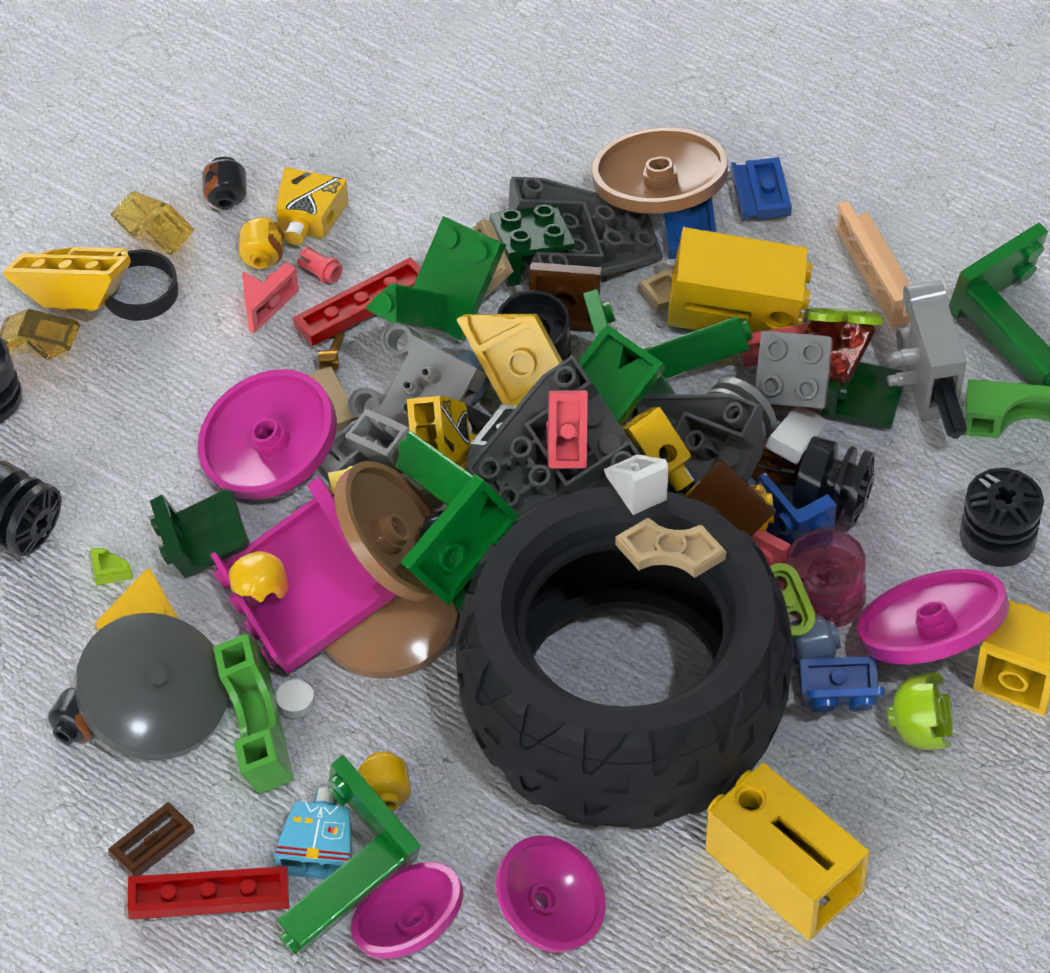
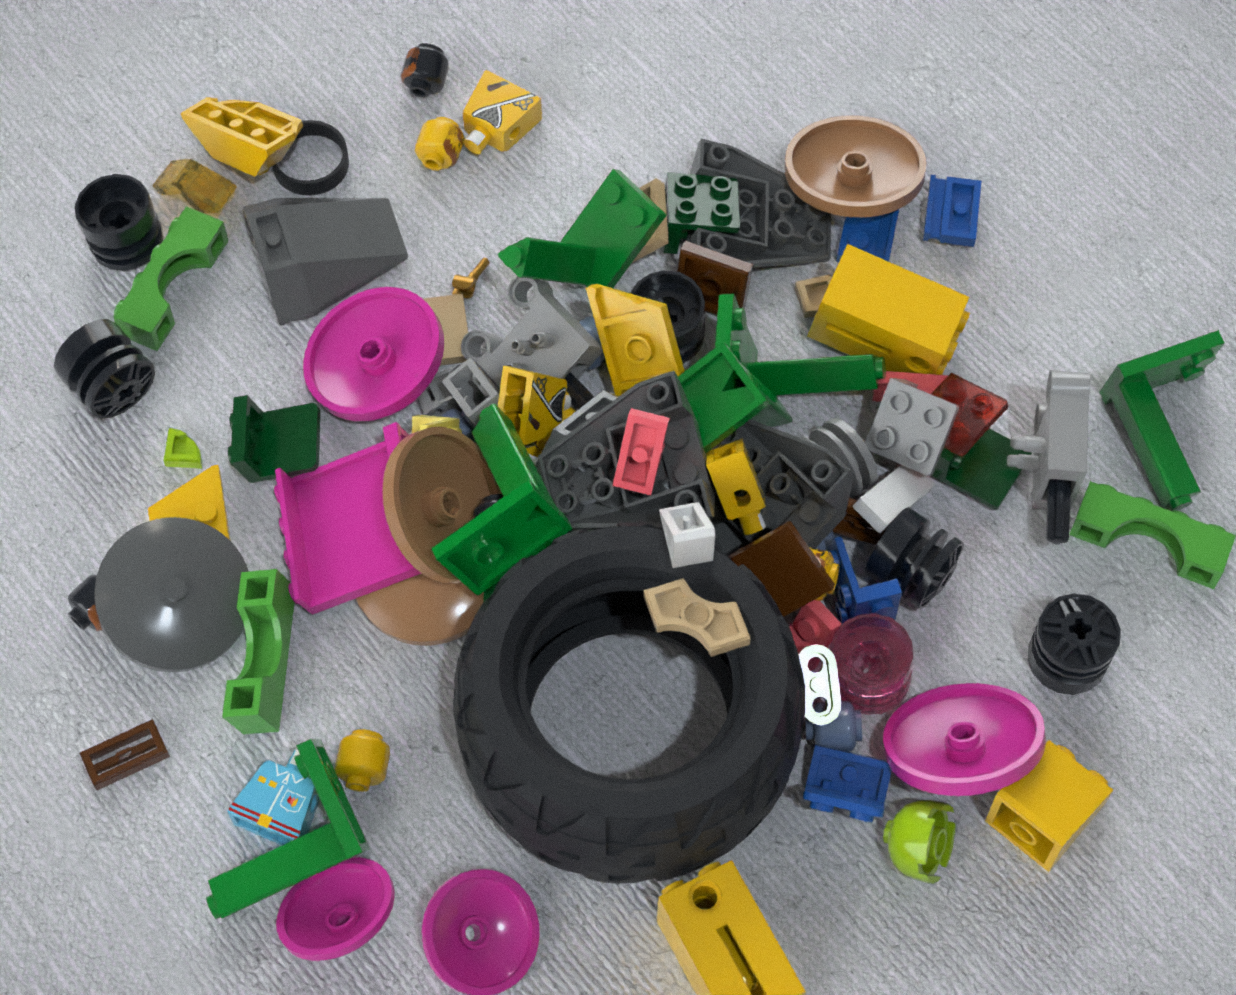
camera: 15 degrees right, 10 degrees up
(52, 384) = (191, 243): none -> bright green arch
(160, 220) = (345, 91): clear yellow slope -> none
(182, 359) = (322, 249): none -> dark grey wedge
(208, 892) = (158, 828): red plate -> none
(258, 576) = (310, 509): yellow hair -> none
(267, 298) = (422, 206): coral slope -> none
(295, 699) = (310, 642): white tile -> none
(326, 268) = (494, 188): coral pin -> none
(350, 305) = (491, 236): red plate -> none
(856, 316) = (994, 380): lime piece -> none
(874, 262) = (1042, 320): light nougat fence -> none

